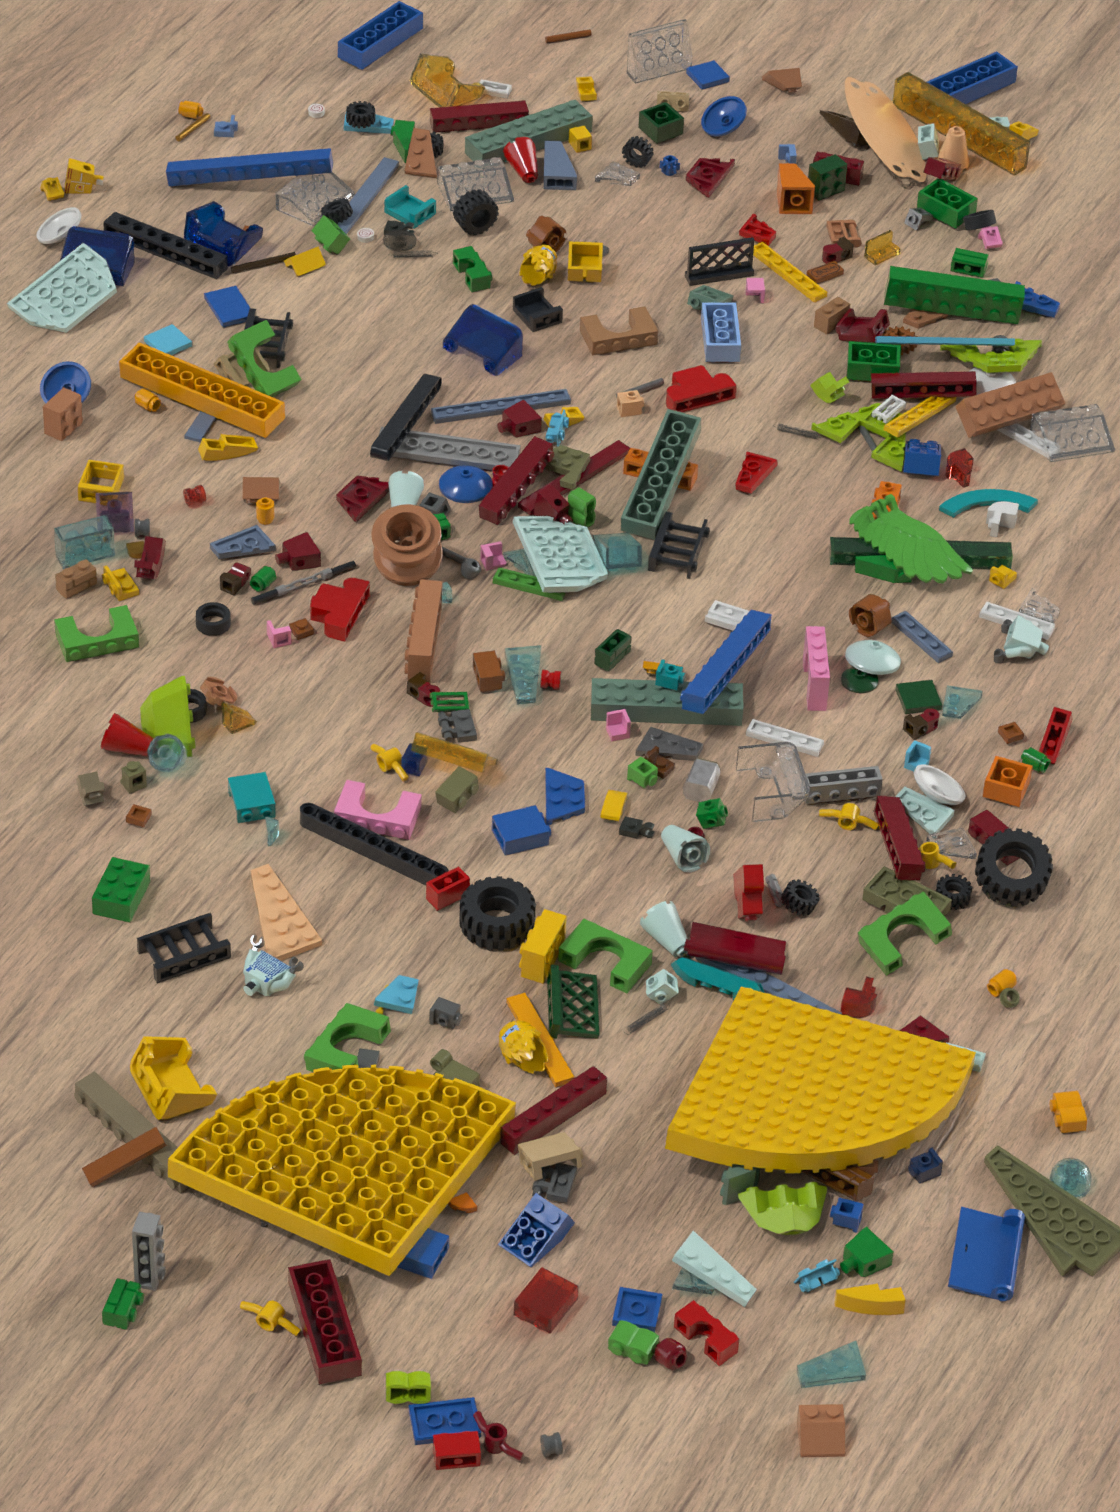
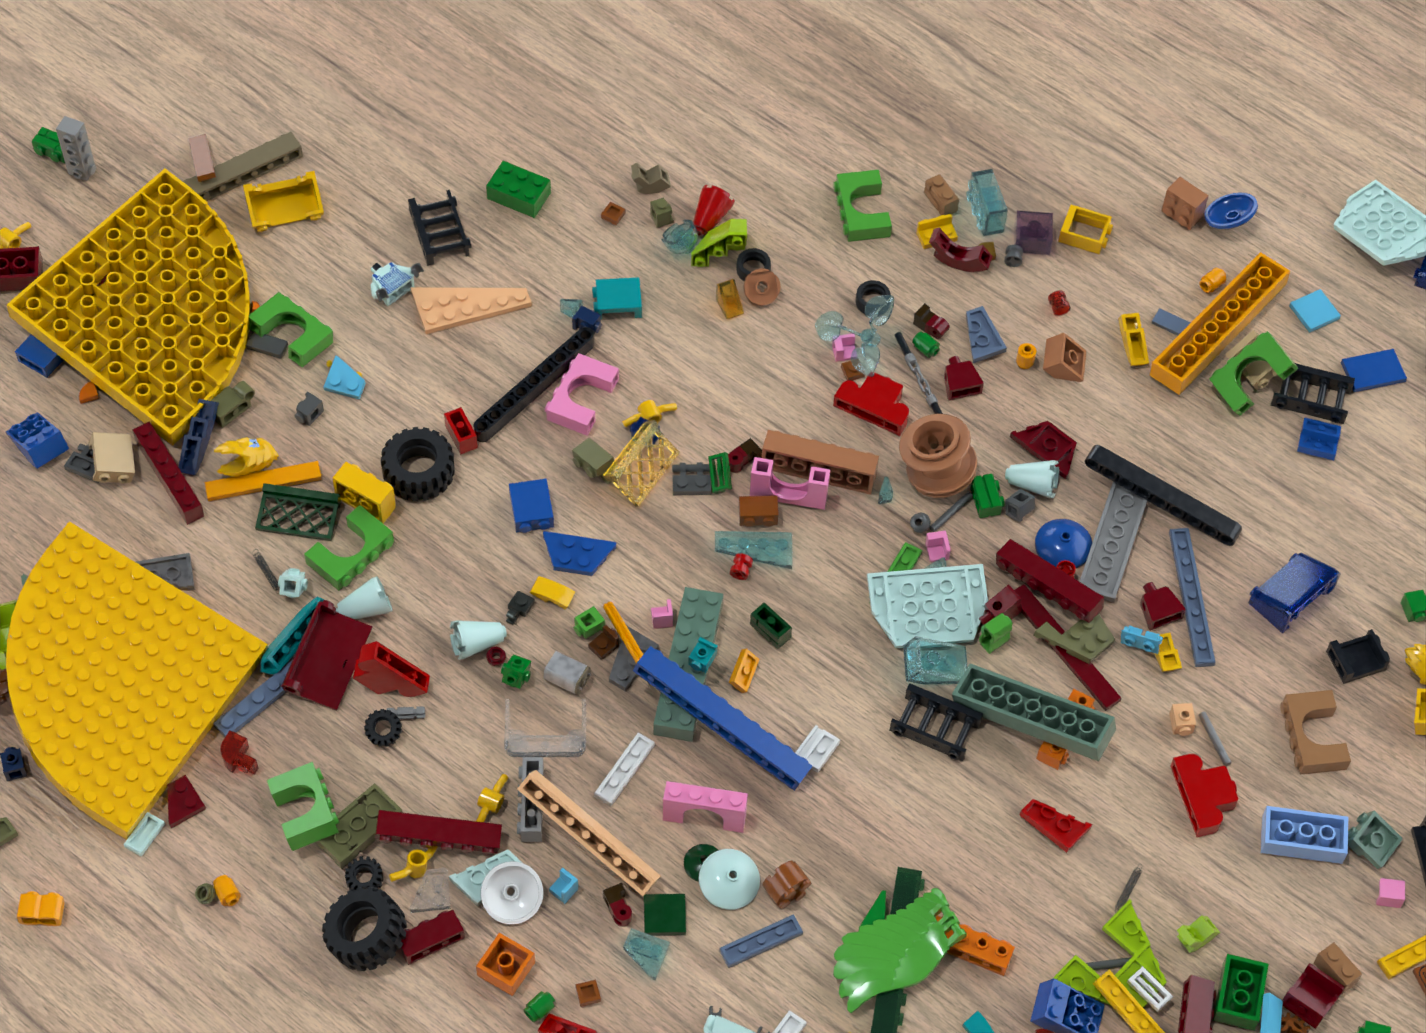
camera: 100 degrees right, 15 degrees up
(262, 634) = (867, 357): none -> clear light blue plant
(287, 816) = (586, 318): none -> dark blue brick
(313, 337) = (1319, 438): none -> blue slope
(459, 643) = (808, 494): none -> bright pink arch
(514, 1090) = (198, 438): none -> dark blue slope
(656, 740) = (623, 631): none -> light orange axle
(668, 1089) = (173, 569): none -> flat silver wing
(869, 733) = (588, 832): none -> light nougat brick

